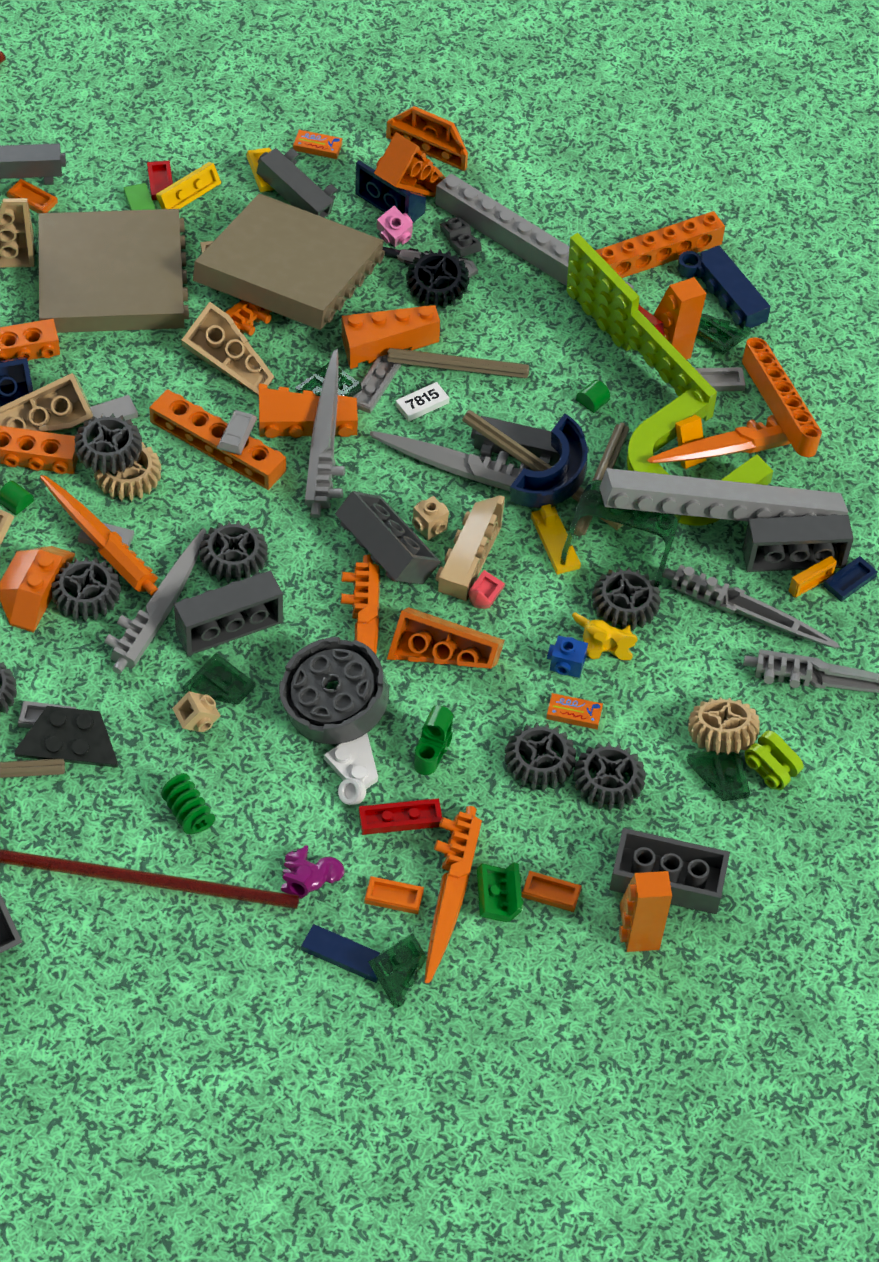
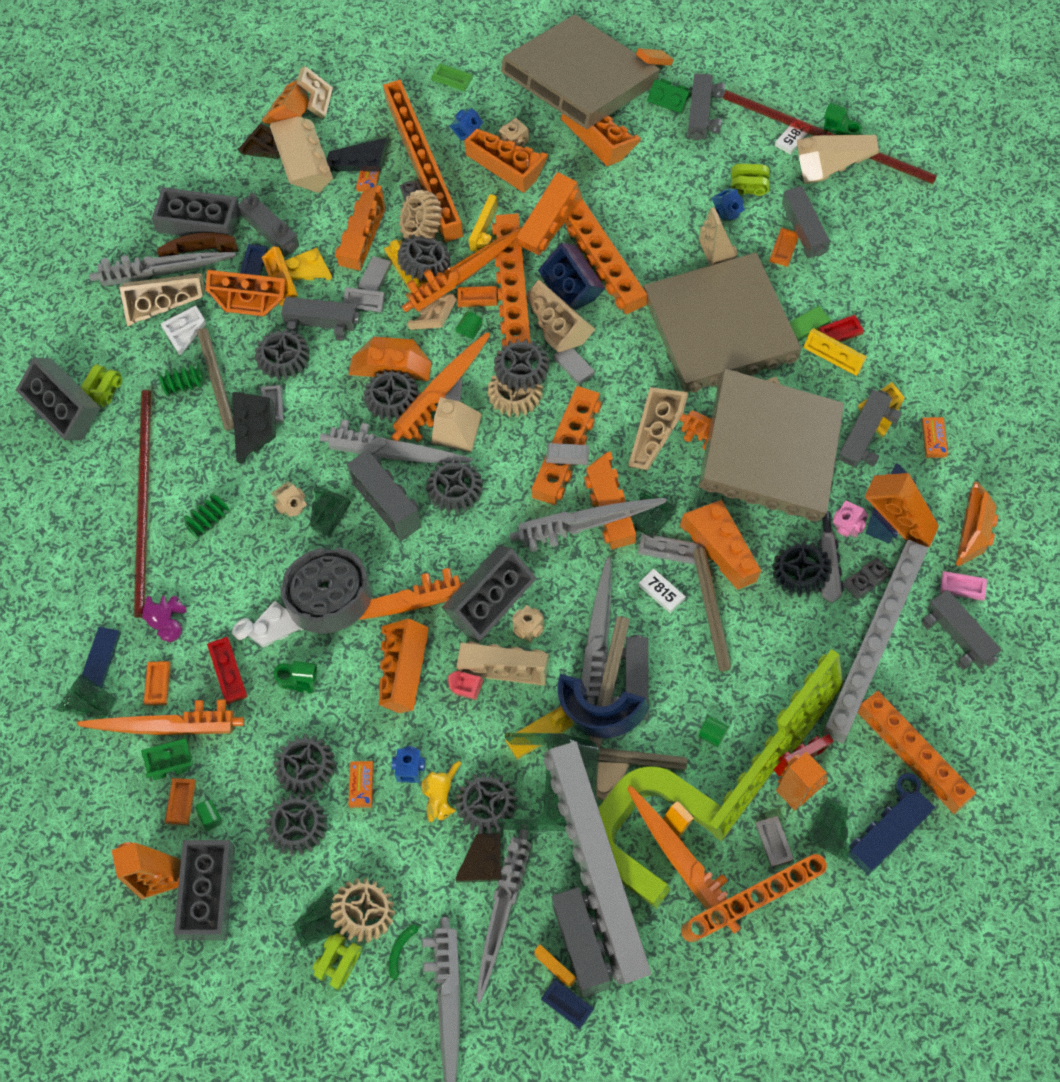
camera: 85 degrees right, 10 degrees up
(152, 536) = (455, 425): none -> tan slope
(490, 170) = (964, 585): none -> bright pink tile
(541, 180) = (964, 631): none -> dark grey brick
(578, 862) = (208, 815): none -> green brick
(685, 618) = (482, 860): none -> dark brown wing
(766, 712) = (396, 950): none -> green piece

